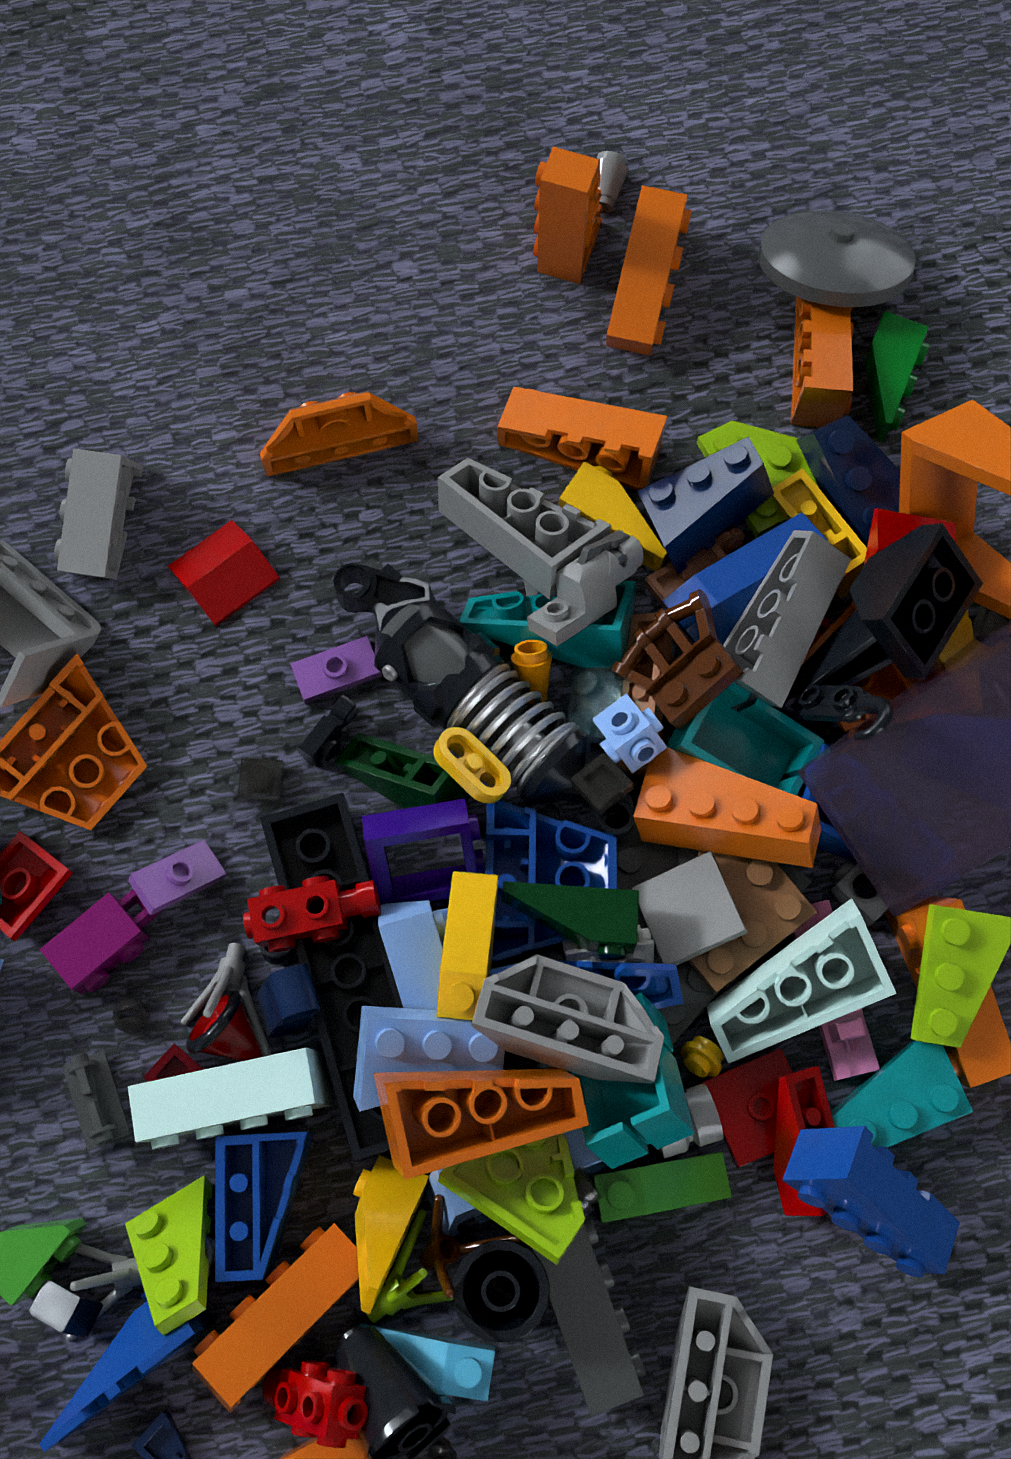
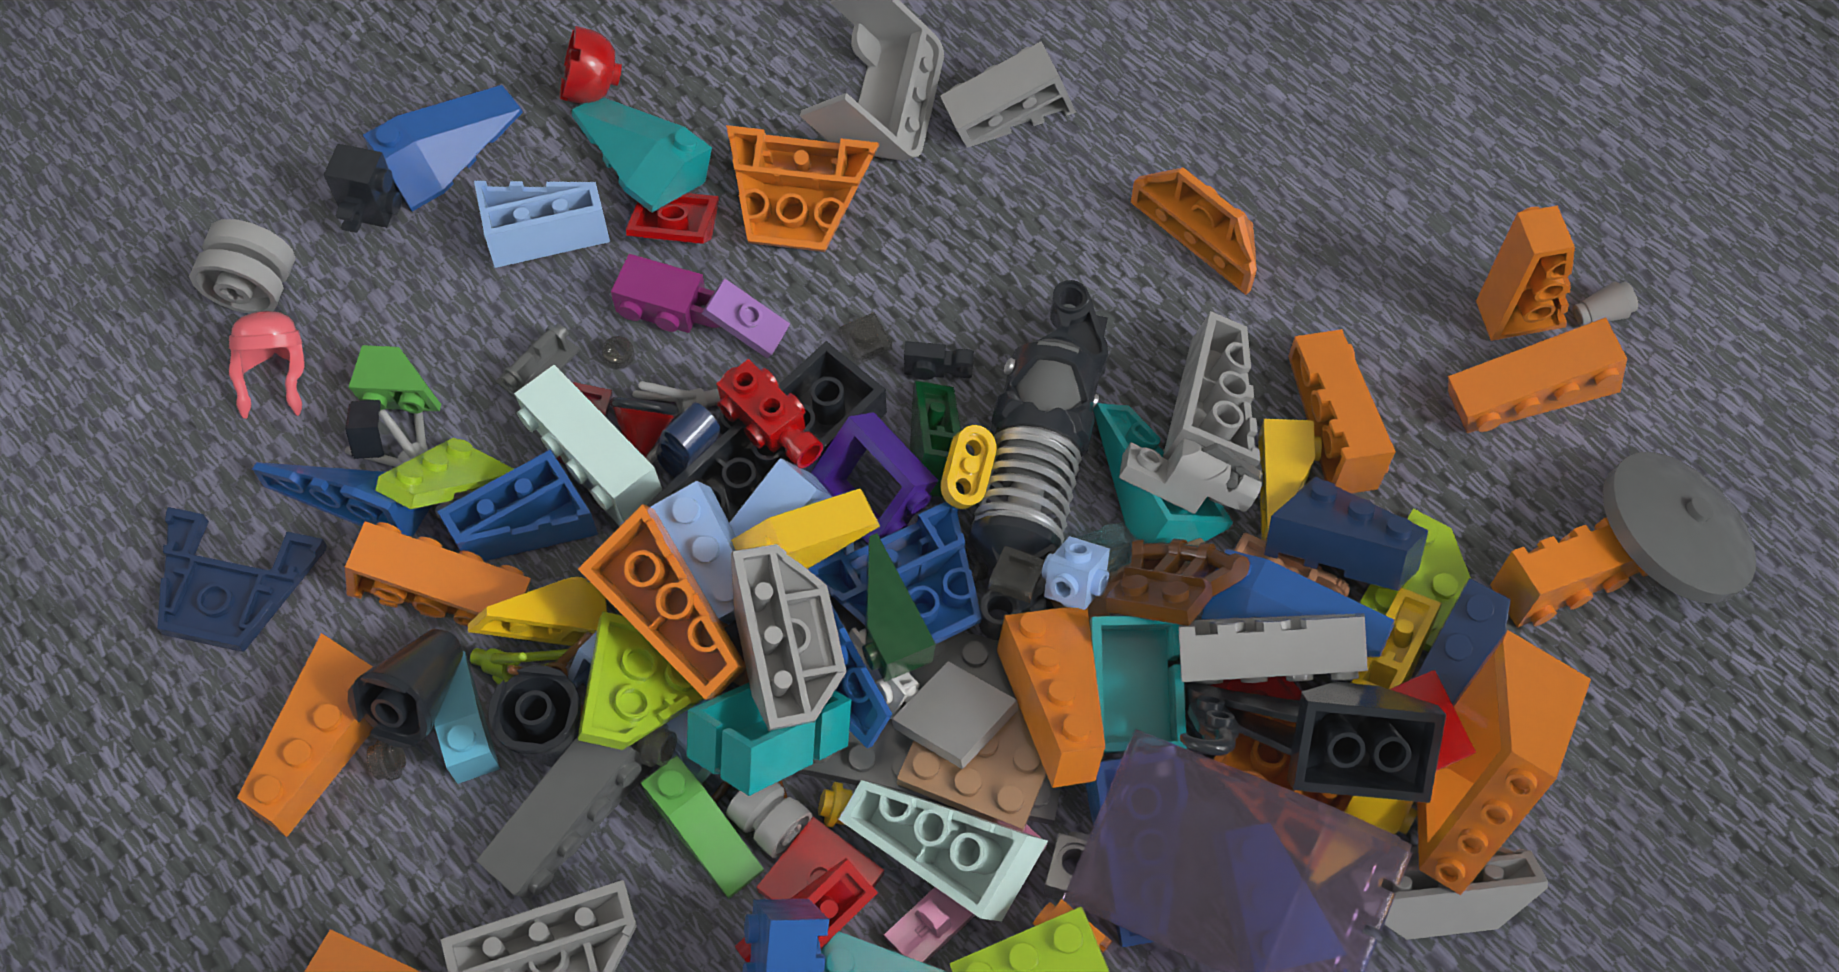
camera: 60 degrees right, 10 degrees down
(224, 572) = (1023, 216): red slope -> none
(317, 1402) = (380, 624): red brick -> none
(335, 670) = (989, 336): medium lavender plate -> none
(533, 664) = (1094, 482): light orange cone -> none
(889, 366) = (1619, 635): green slope -> none

